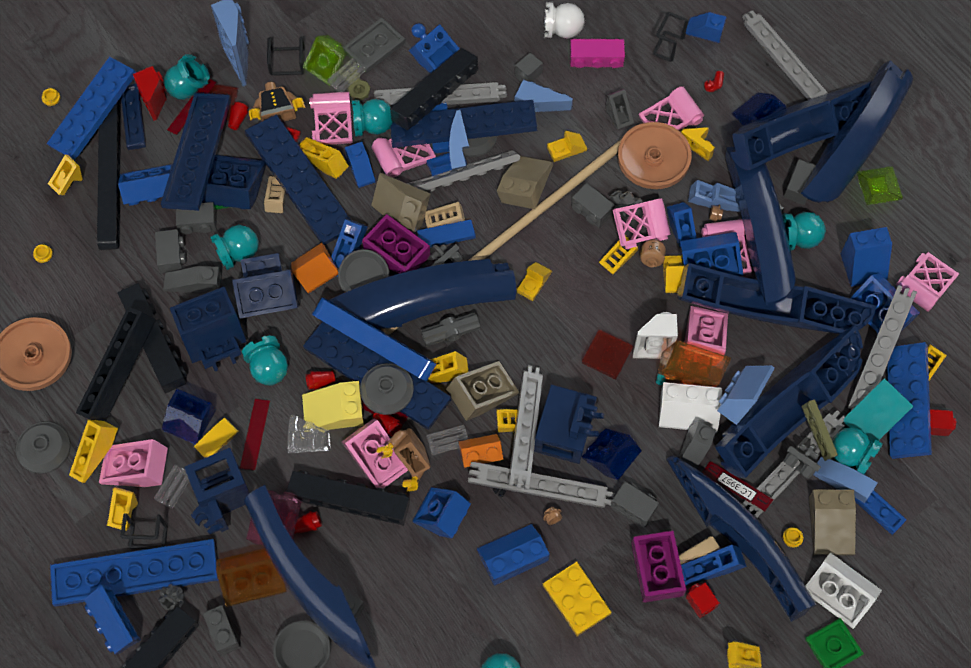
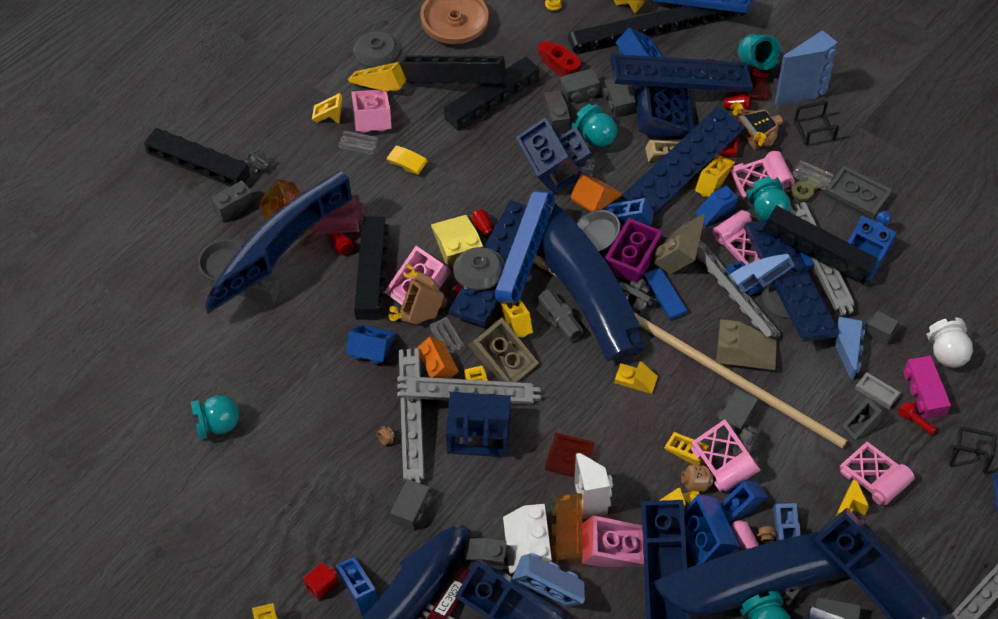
camera: 80 degrees right, 10 degrees down
(111, 620) = (230, 124): blue slope -> none
(133, 118) = (711, 30): dark blue tile -> none
(134, 571) = (276, 132): blue plate -> none
(138, 256) = (559, 58): none -> red piece
(150, 537) = (309, 126): black piece -> none
(151, 90) = (733, 29): red slope -> none
(187, 416) = (423, 133): clear blue slope -> none
(209, 328) = (499, 120): dark blue piece -> none
(219, 499) = (365, 173): dark blue piece -> none
(254, 434) = (420, 189): dark red sticker -> none
(266, 360) = (486, 175): teal tile -> none
(306, 437) = (422, 224): clear slope -> none
(324, 58) = (828, 152): clear neon green slope -> none
(389, 423) = (449, 285): red cone -> none
(451, 208) = (693, 296): tan slope -> none
(513, 554) = (340, 408): blue slope -> none
(566, 147) = (803, 381): yellow slope -> none
(576, 598) = (306, 472): yellow plate -> none
(588, 92) = (877, 390): none -> light grey tile
(612, 453) = (460, 475): clear blue slope -> none
(617, 74) = (908, 411): none -> red piece
(654, 155) = (815, 459): nougat dish -> none
(658, 566) = (346, 532): magenta brick -> none
(703, 548) = (373, 572): tan slope -> none
(712, 86) = (936, 514): red arm -> none
(758, 107) = (915, 556): clear blue slope -> none

